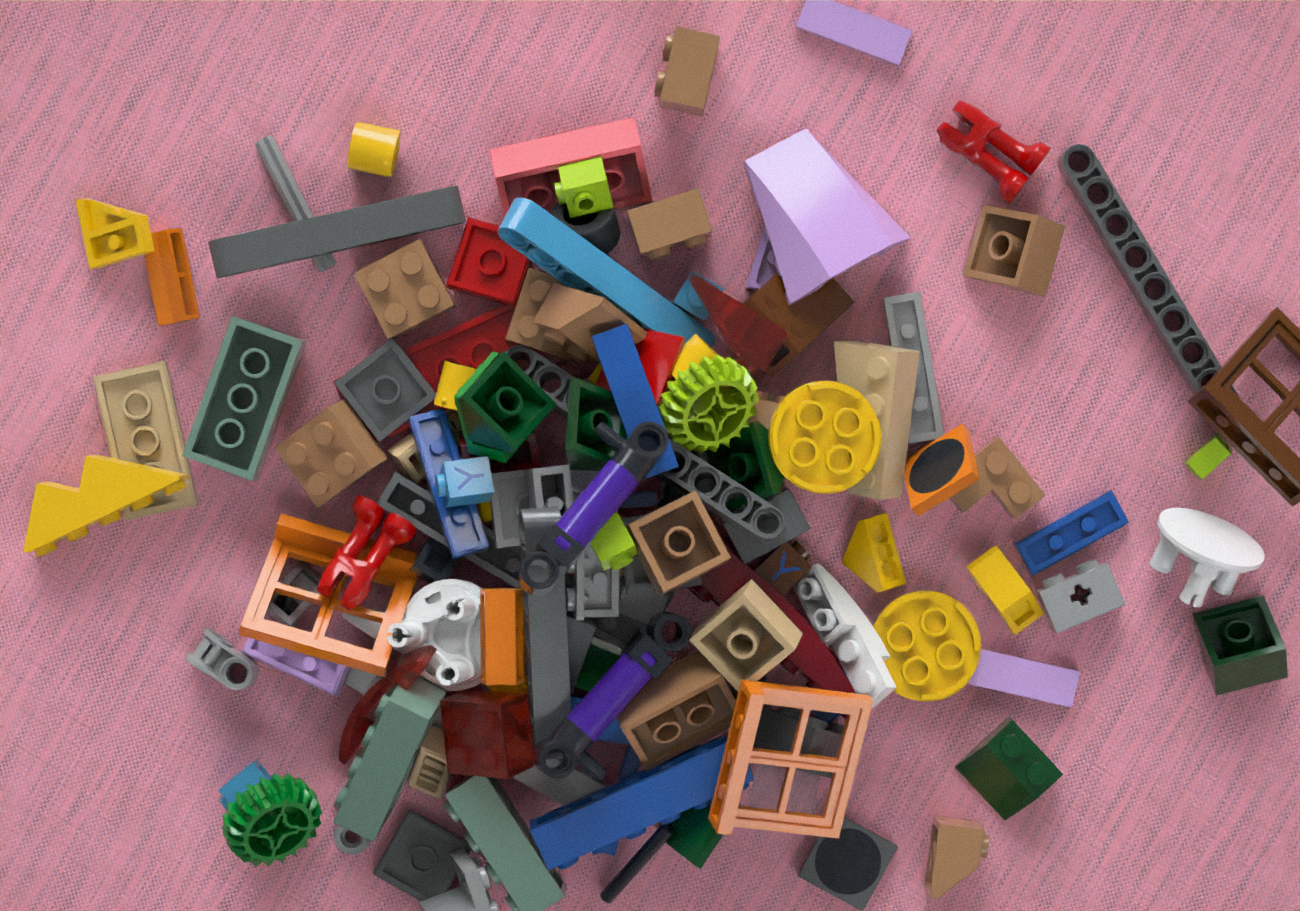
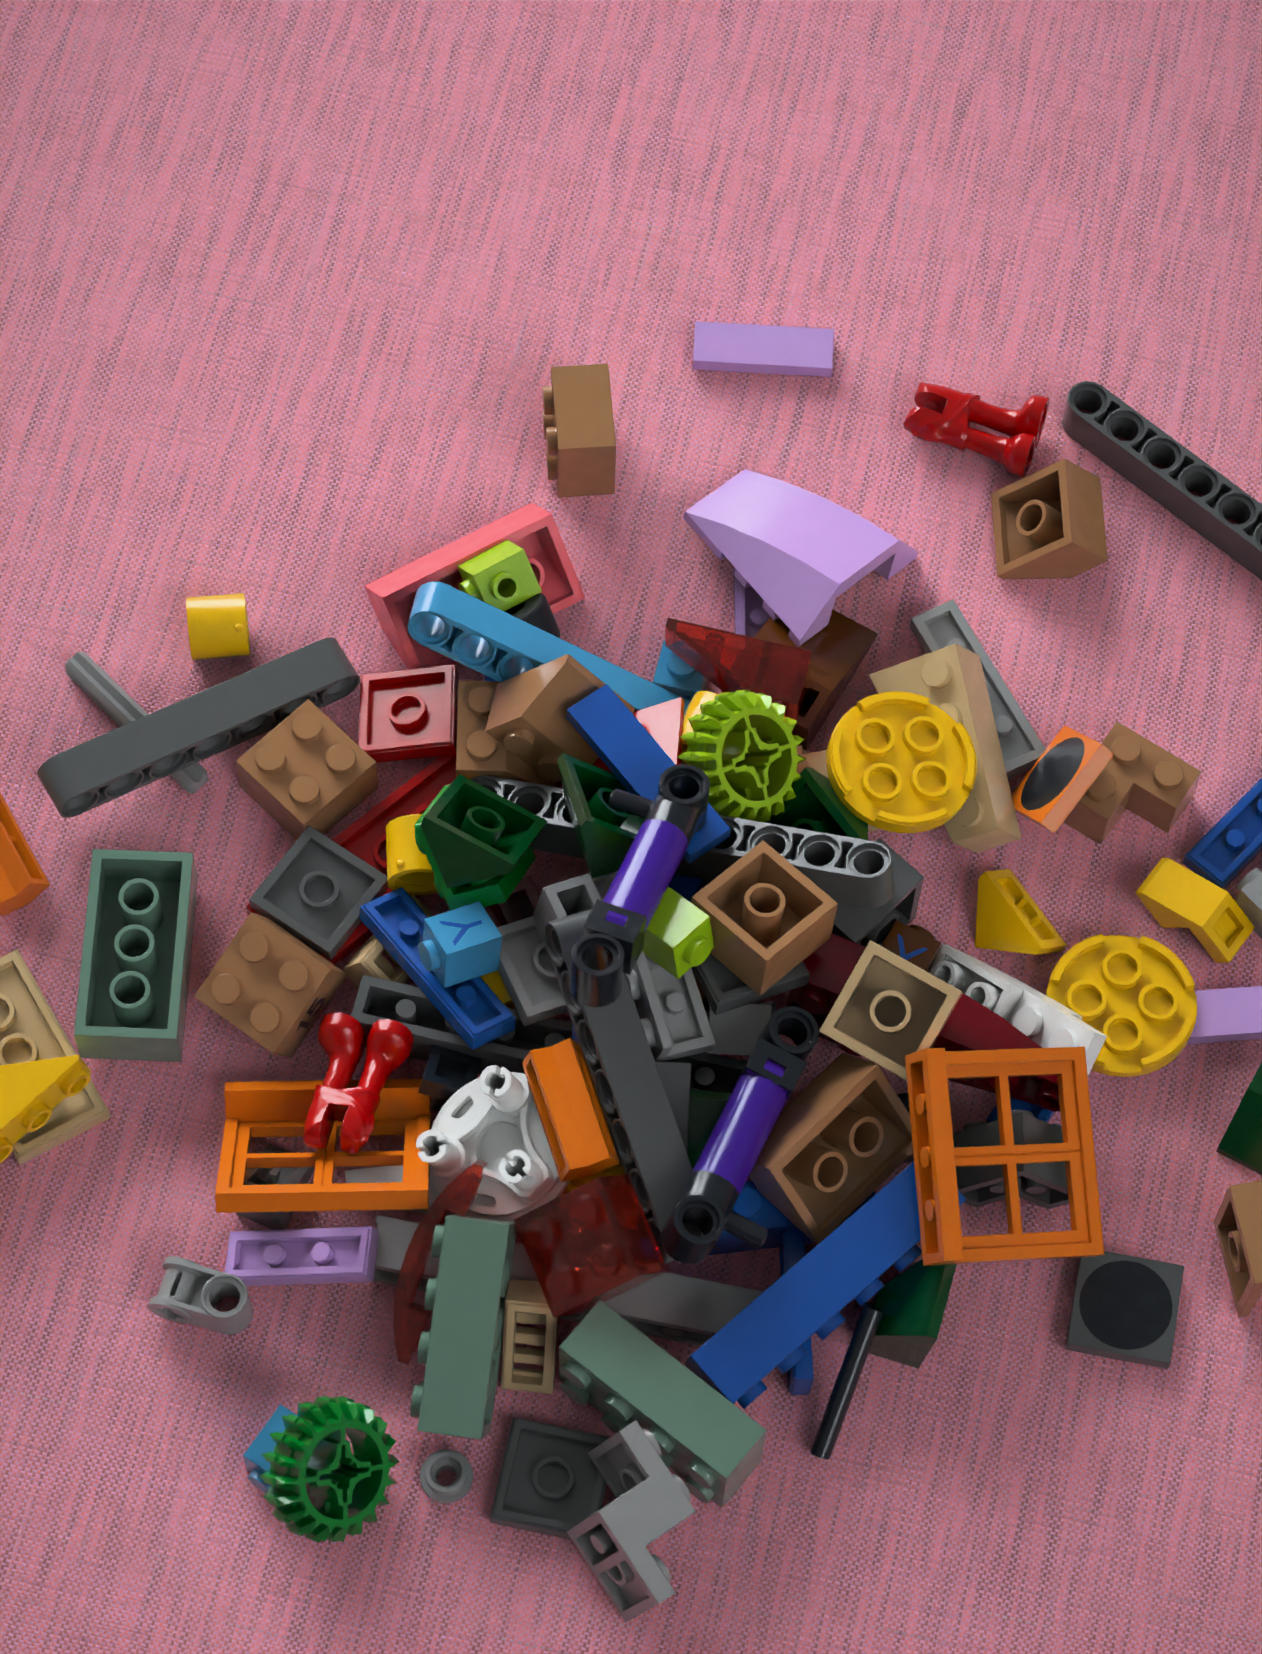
camera: 20 degrees left, 25 degrees down
(670, 224) = (617, 599): medium nougat brick -> none
(768, 784) = (1009, 1278): clear piece -> none

